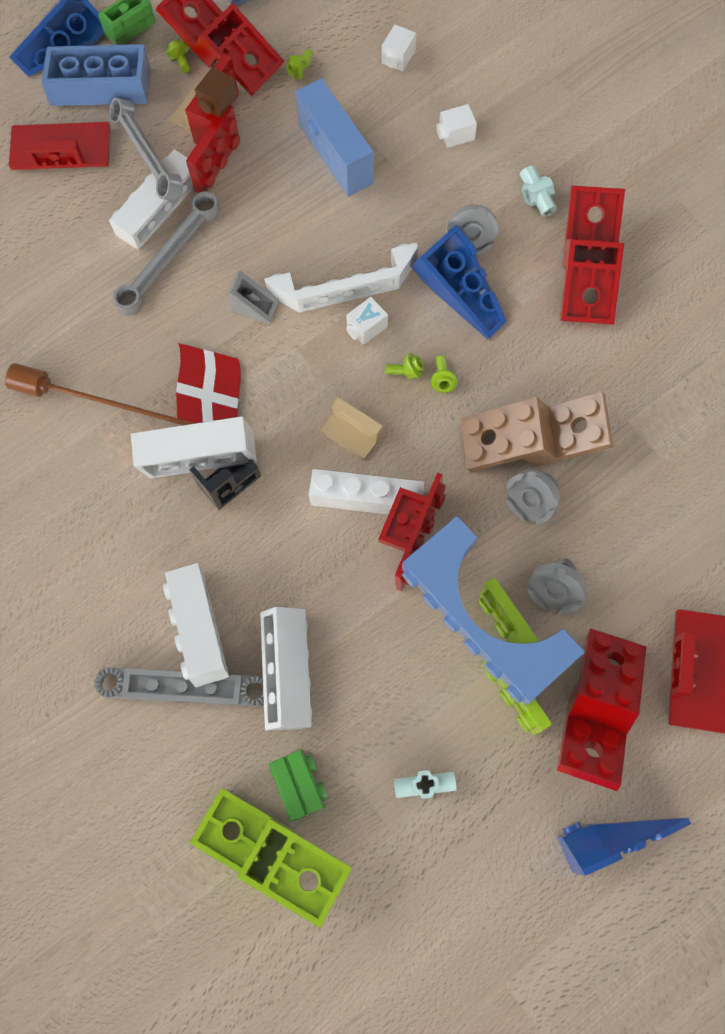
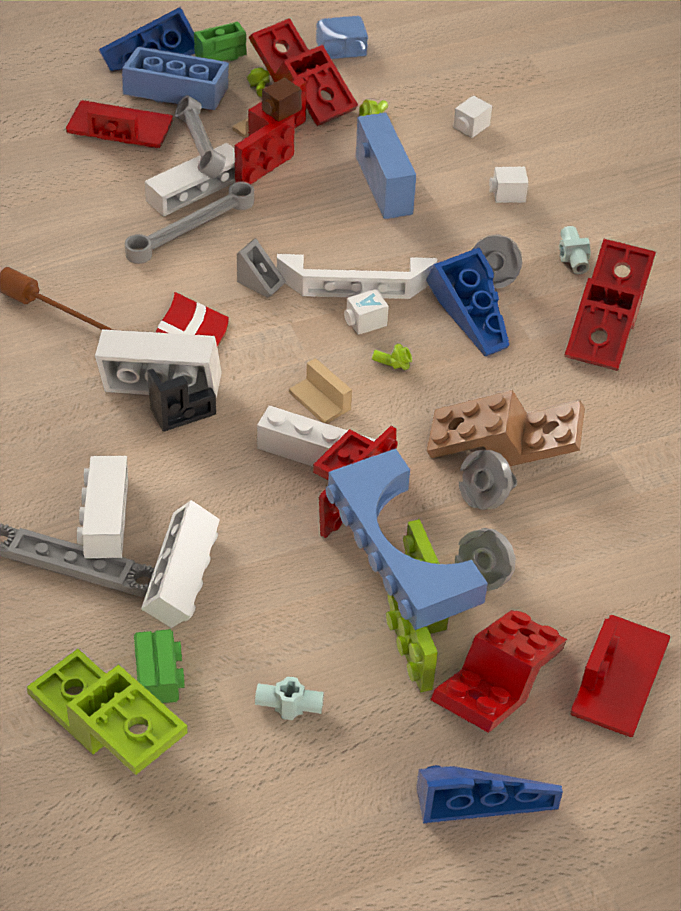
camera: 10 degrees right, 25 degrees down
(443, 377) = (428, 374): lime plate -> none

